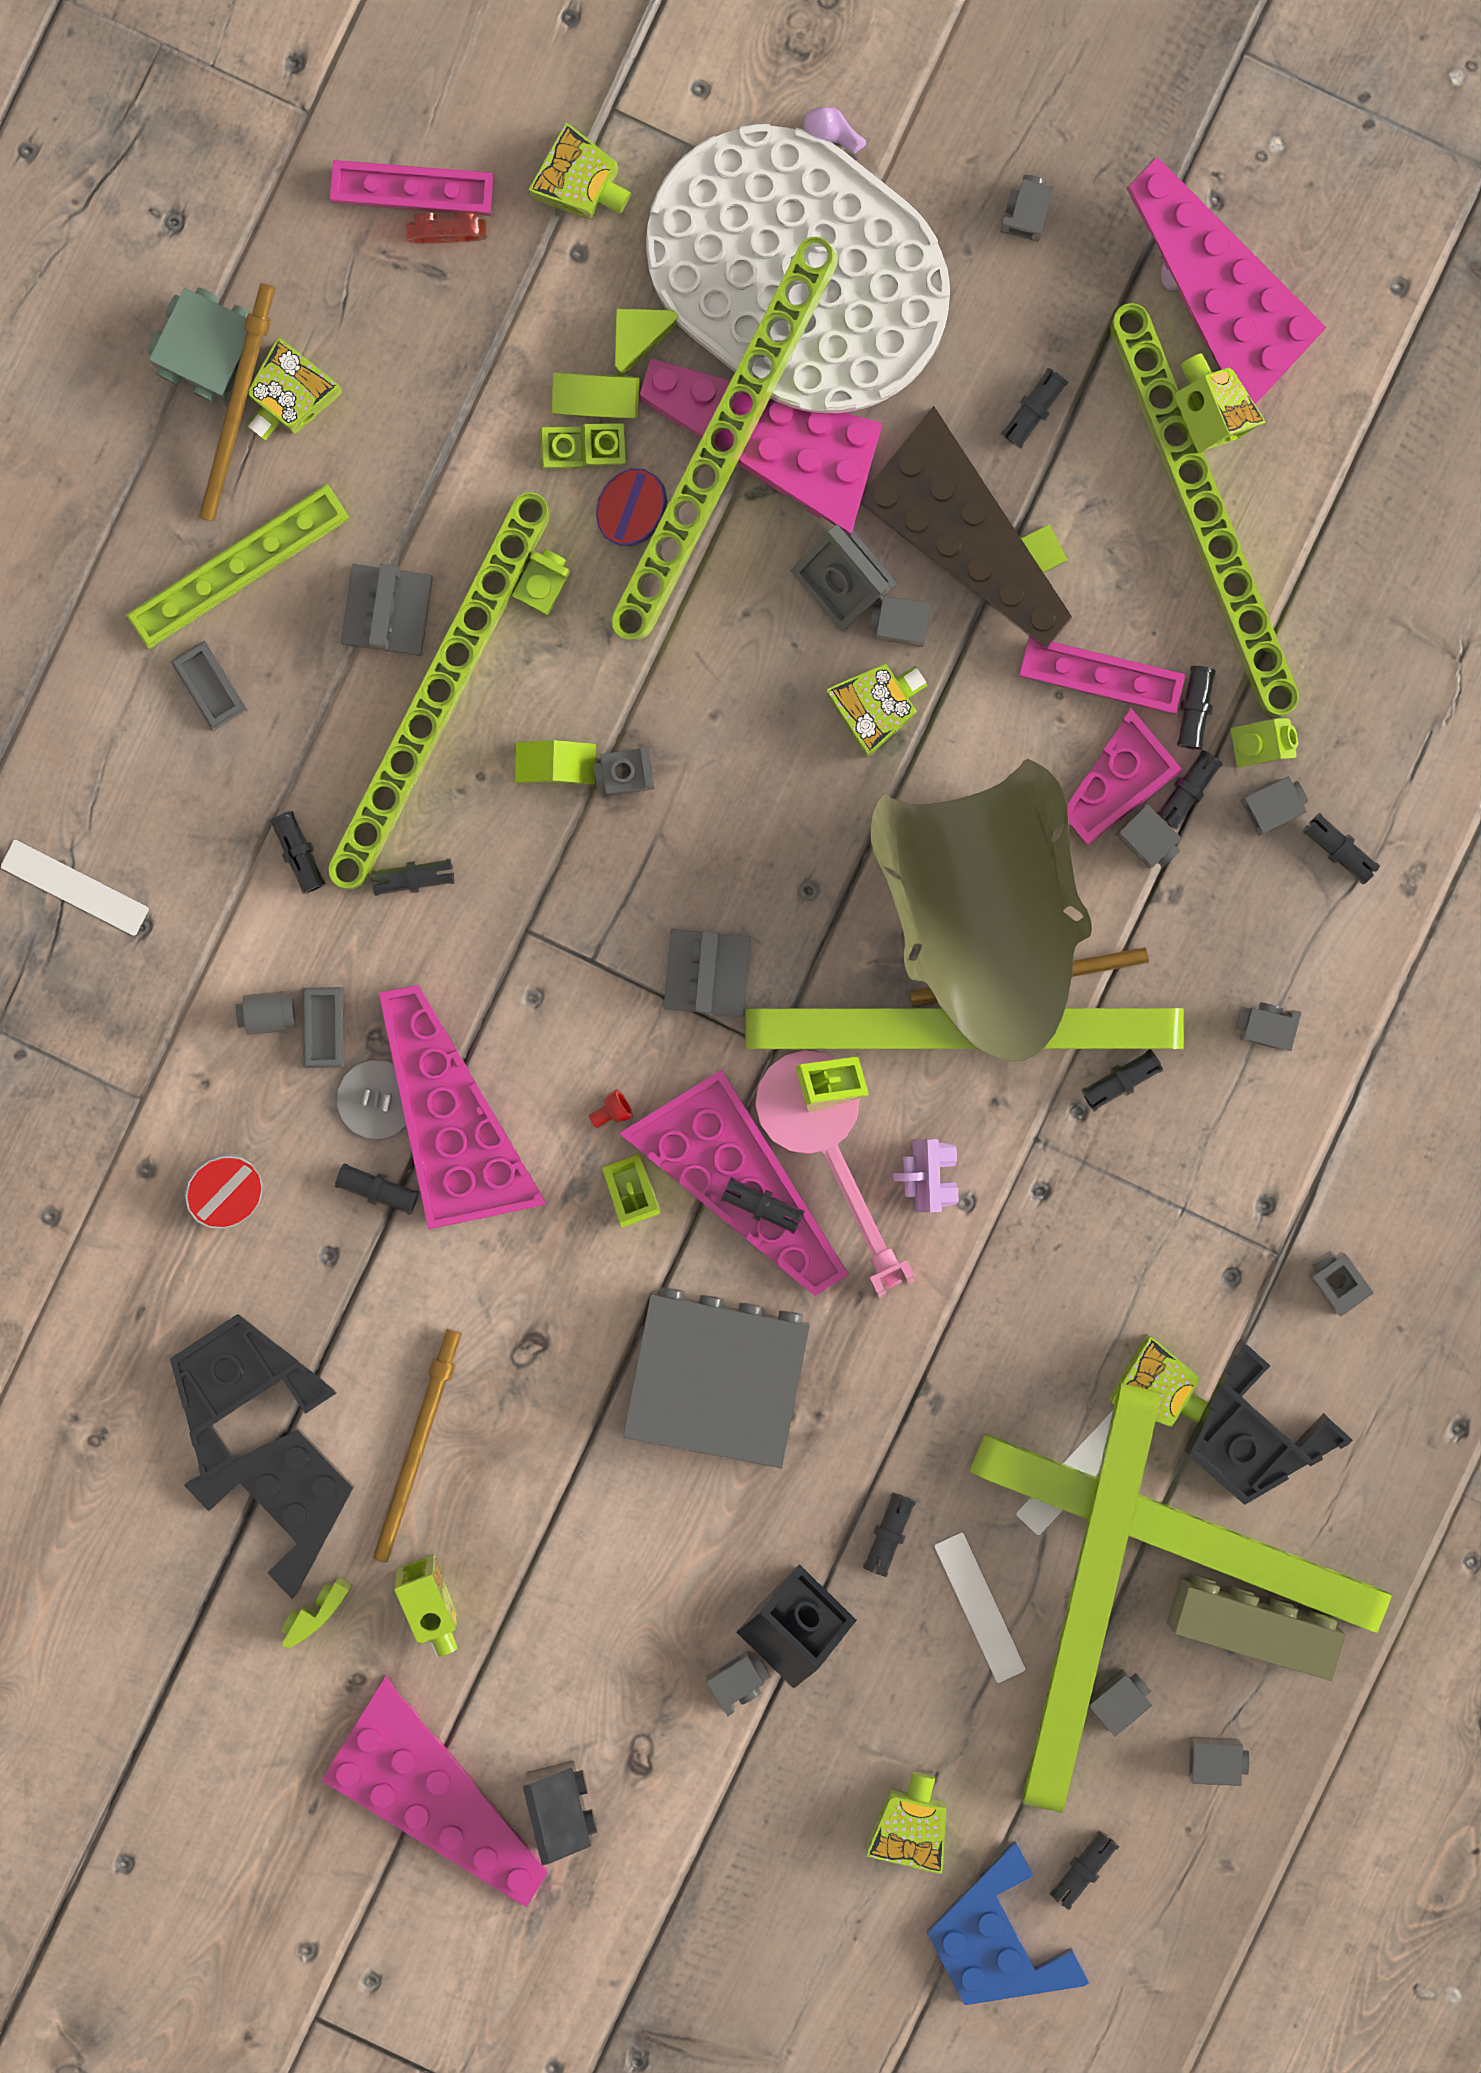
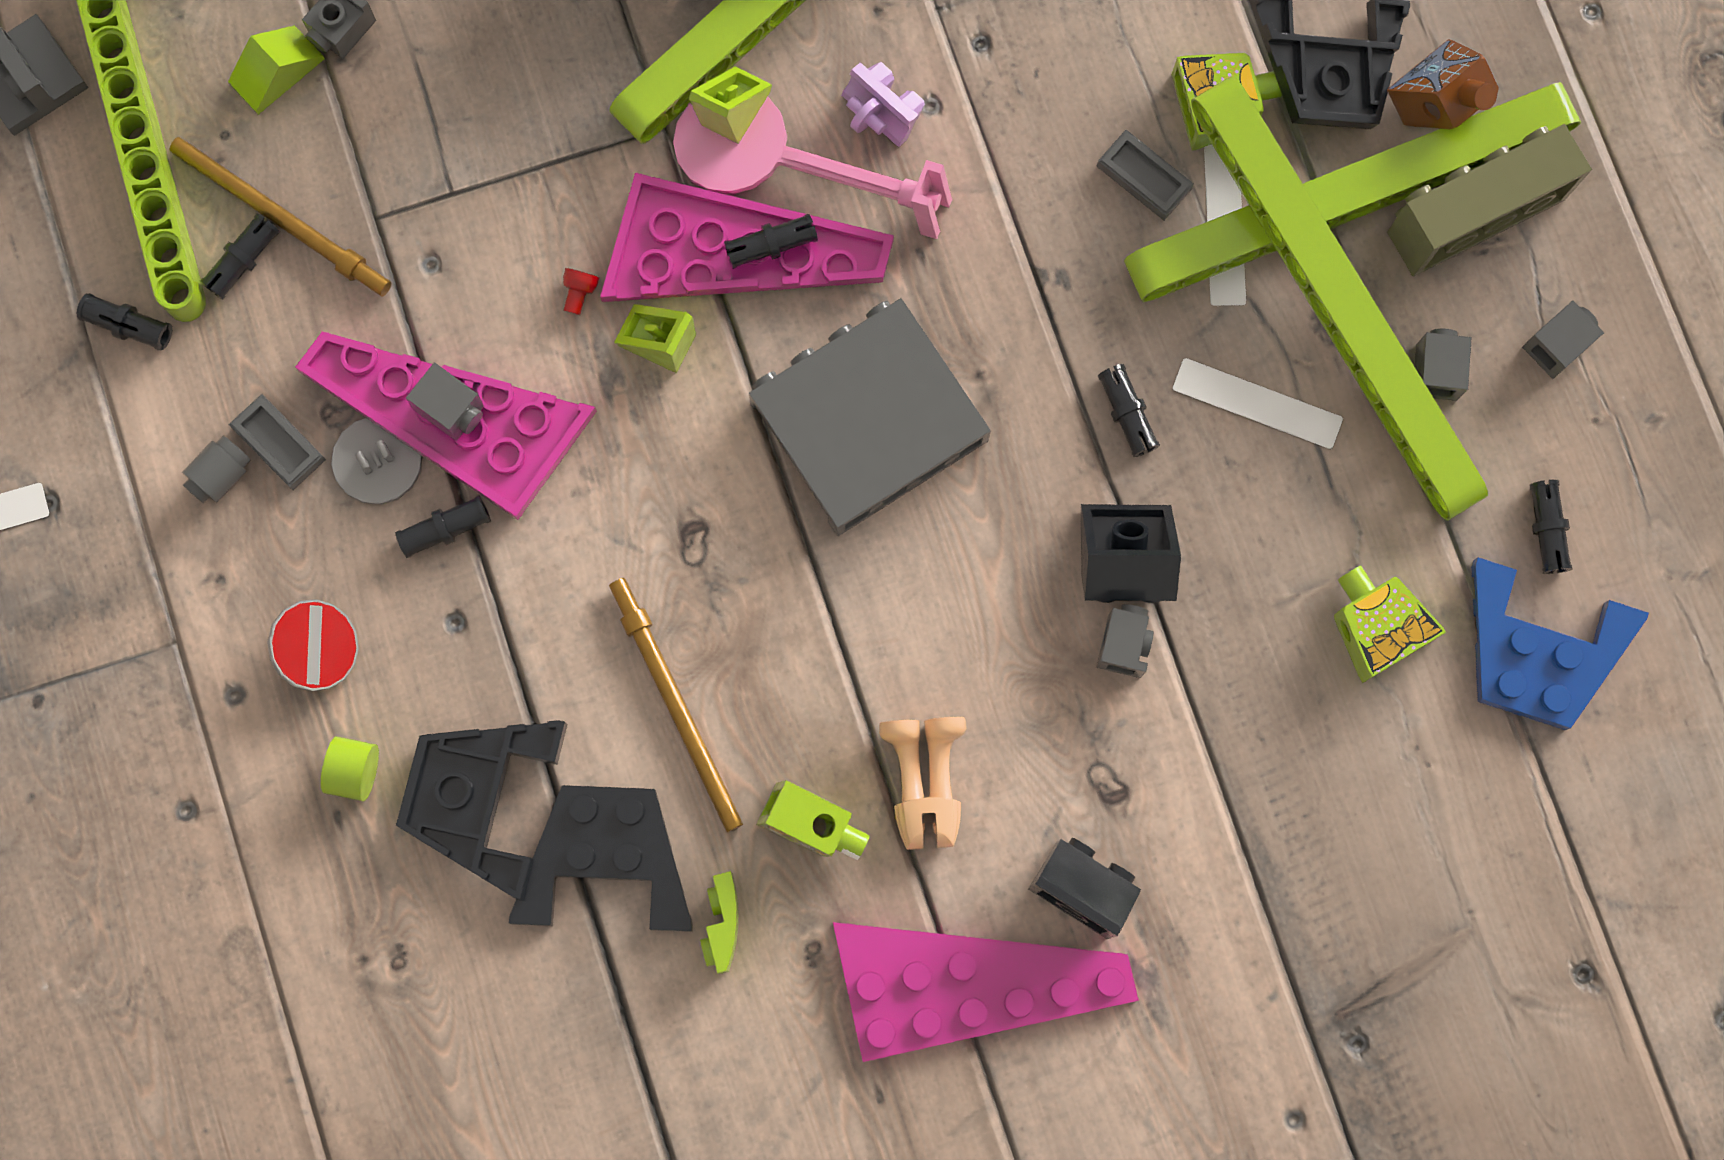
camera: 50 degrees left, 10 degrees down
(174, 1294) = (349, 768): none -> lime piece
(451, 1118) = (446, 402): none -> dark grey brick
(479, 950) = (346, 262): none -> pearl gold bar
(504, 1654) = (940, 736): none -> light nougat piece
(707, 972) = (551, 114): dark grey bracket -> none
(1058, 1387) = (1145, 175): none -> dark grey tile
(1307, 1527) = (1445, 88): none -> dark orange torso

